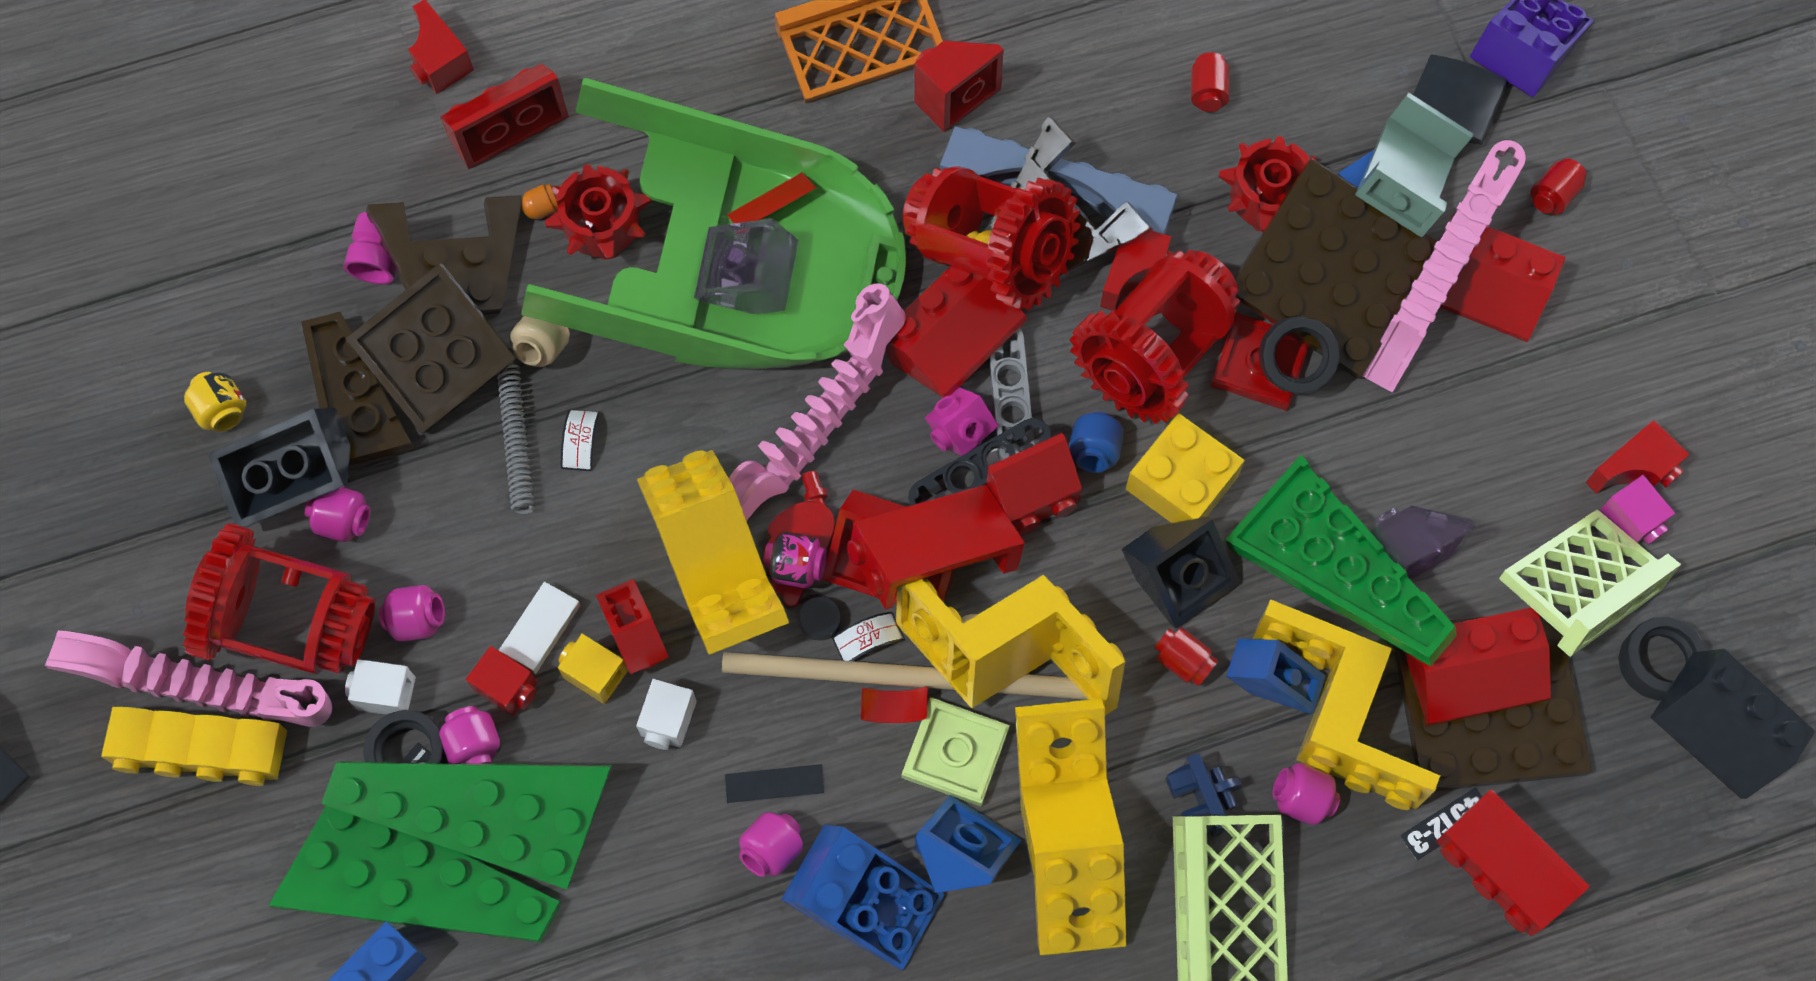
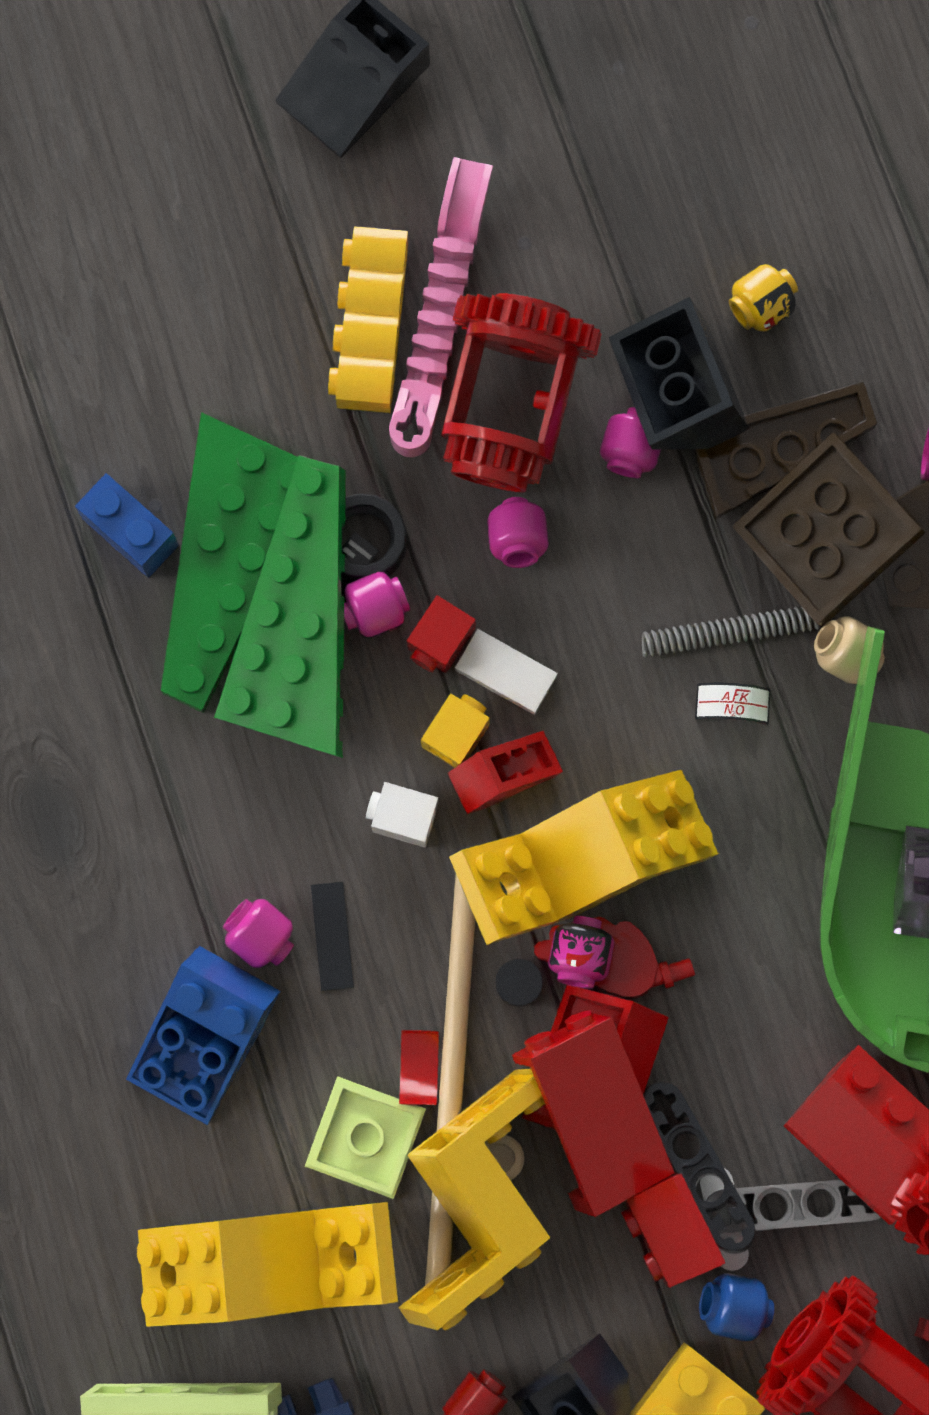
camera: 90 degrees right, 10 degrees up
(379, 687) = (433, 505): white brick -> none
(867, 636) = (496, 1036): white sticker -> none
(875, 324) = (861, 1037): bright pink piece -> none
(960, 422) = (754, 1143): dark pink brick -> none
(963, 847) = (251, 1147): blue slope -> none

